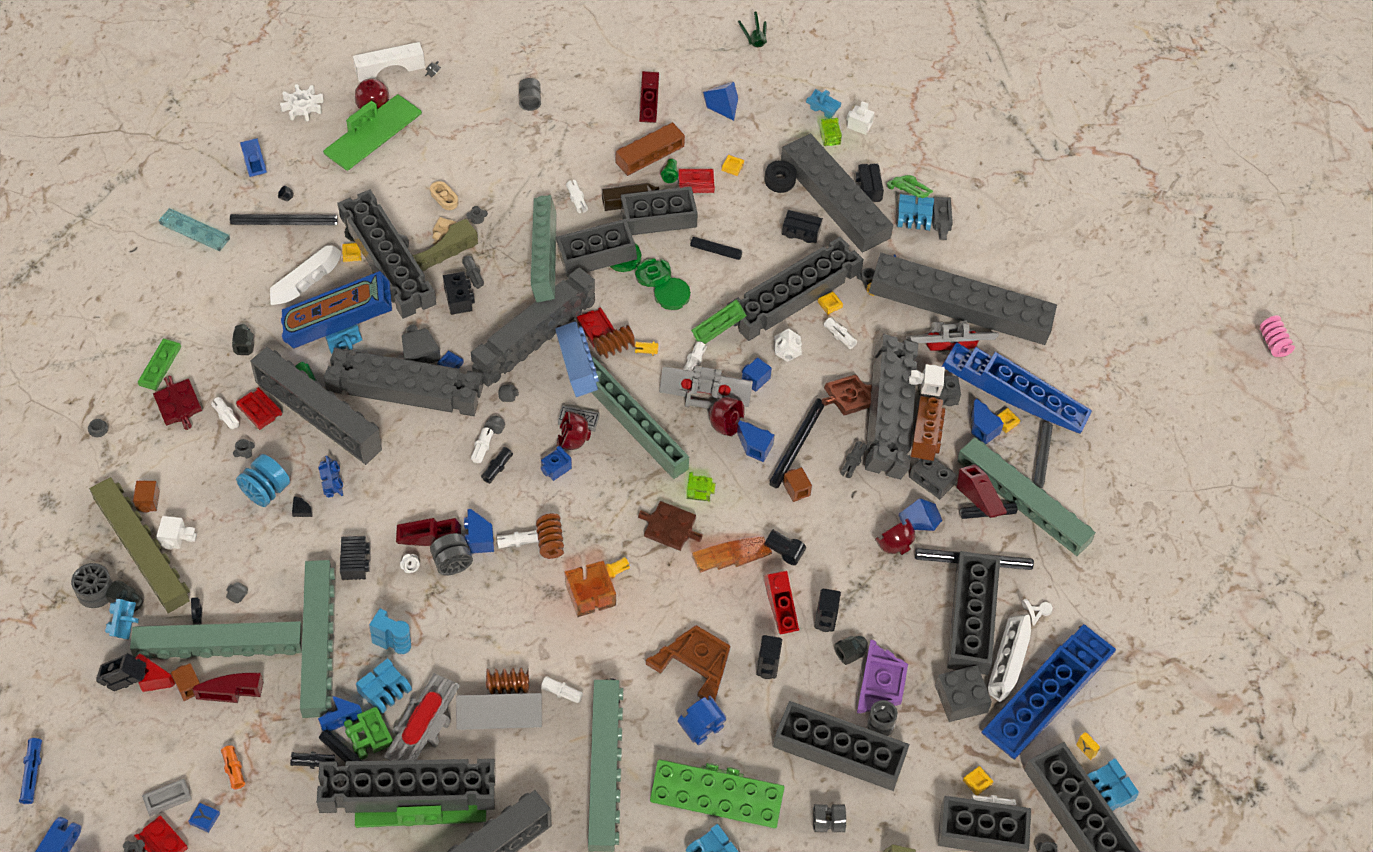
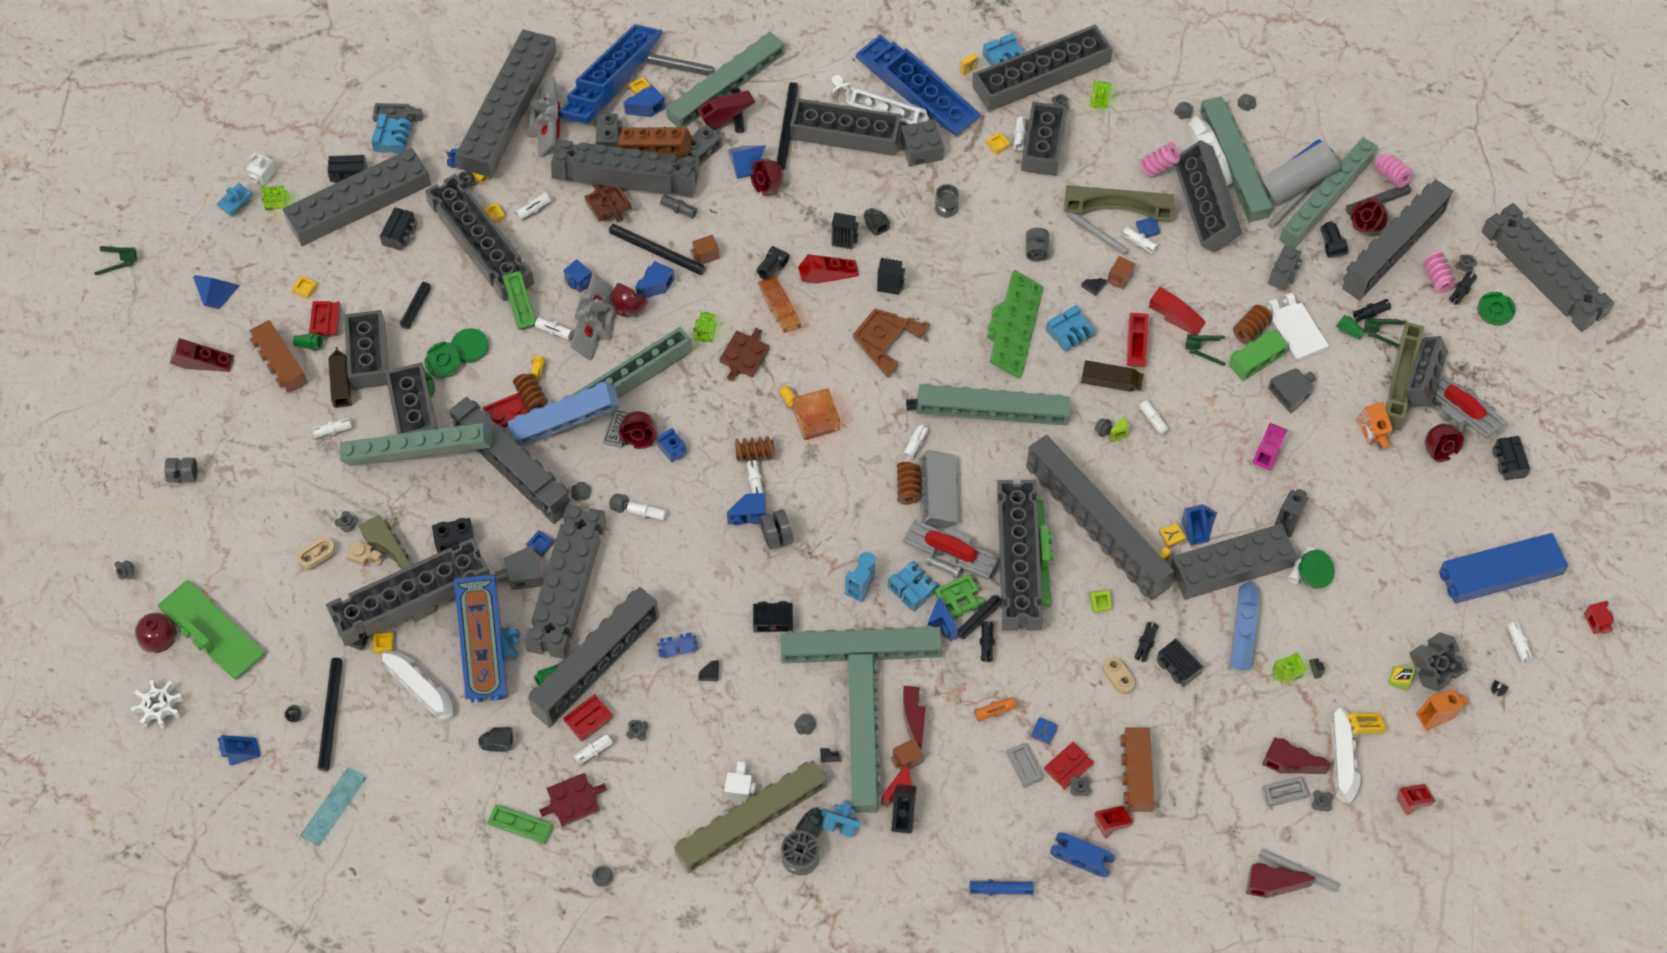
camera: 85 degrees left, 5 degrees up
(146, 496) = (693, 815): dark orange brick -> none
(263, 480) = (685, 699): dark azure wheel -> none
(371, 63) = (108, 625): white arch -> none
(414, 563) = (780, 568): white plate -> none
(425, 531) = (746, 554): dark red slope -> none
(472, 271) = (424, 523): dark grey axle -> none
(497, 465) = (669, 497): black pin -> none
(702, 719) = (950, 329): blue brick -> none
(780, 168) = (328, 235): black tyre -> none
(788, 345) = (542, 249): white brick -> none
(841, 745) = (972, 231): dark grey brick -> none
(882, 678) = (906, 200): medium lavender wing -> none
(899, 182) = (359, 136): bright green piece -> none
(931, 379) = (607, 129): white brick -> none

